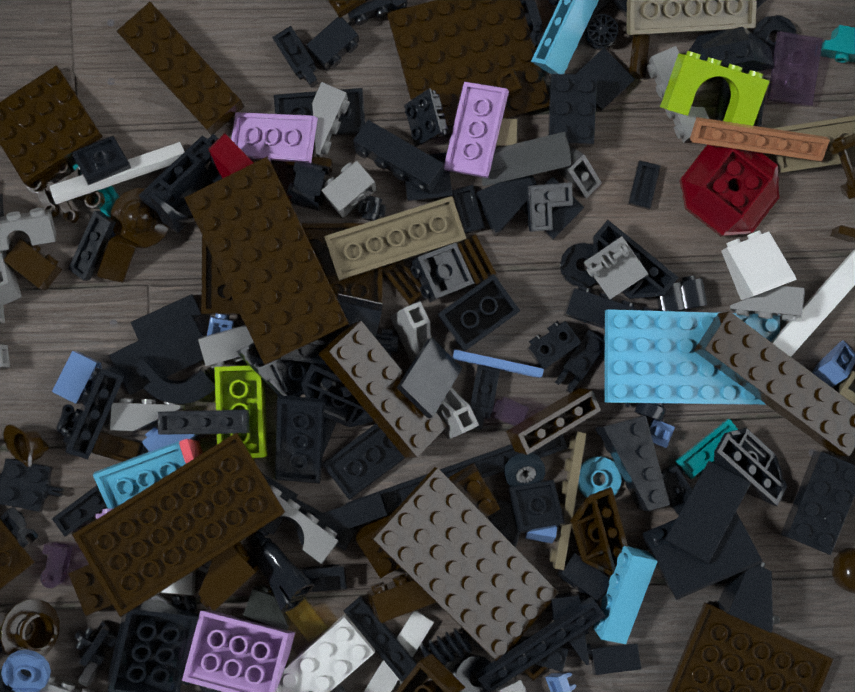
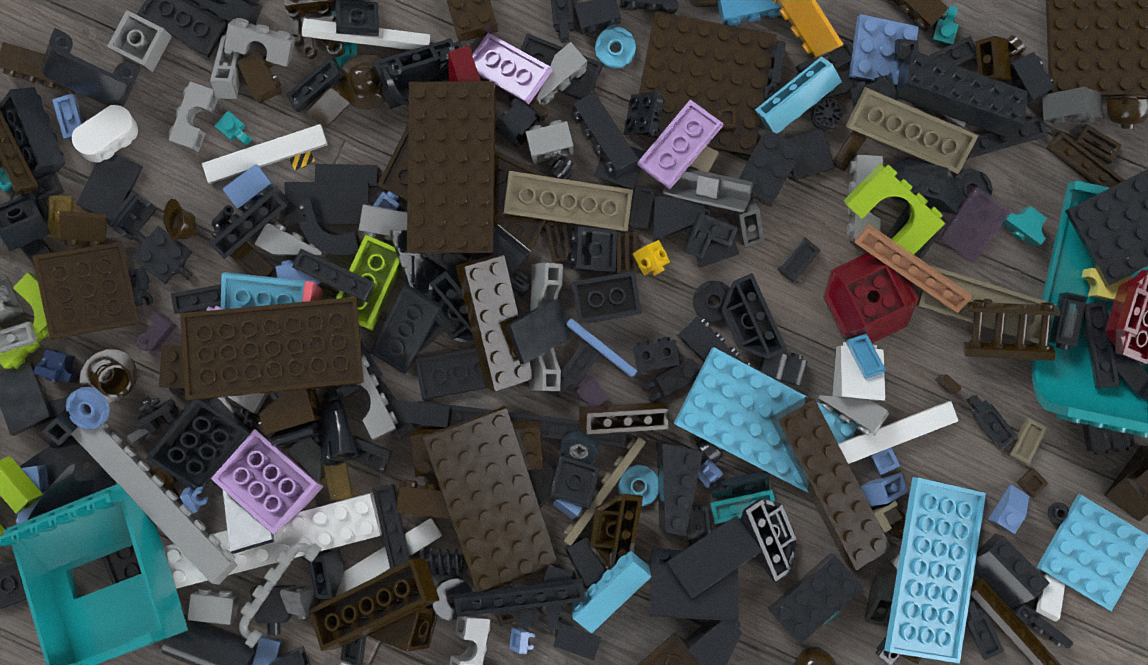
camera: 30 degrees right, 0 degrees up
(31, 327) = (232, 128): none -> teal plate
(76, 337) = (265, 153): none -> white tile
(113, 323) = (301, 160): none -> sticker
(242, 595) = (295, 434): none -> black slope
(371, 79) = (621, 58): none -> medium azure tile
(503, 253) = (651, 258): none -> yellow brick
(523, 156) = (708, 185): none -> flat silver tile
(615, 267) = (738, 316): light grey hinge -> none
(697, 429) = (740, 485): none -> black hinge
(756, 246) = (865, 356): none -> dark azure tile
(822, 337) = (884, 461): none -> medium blue plate

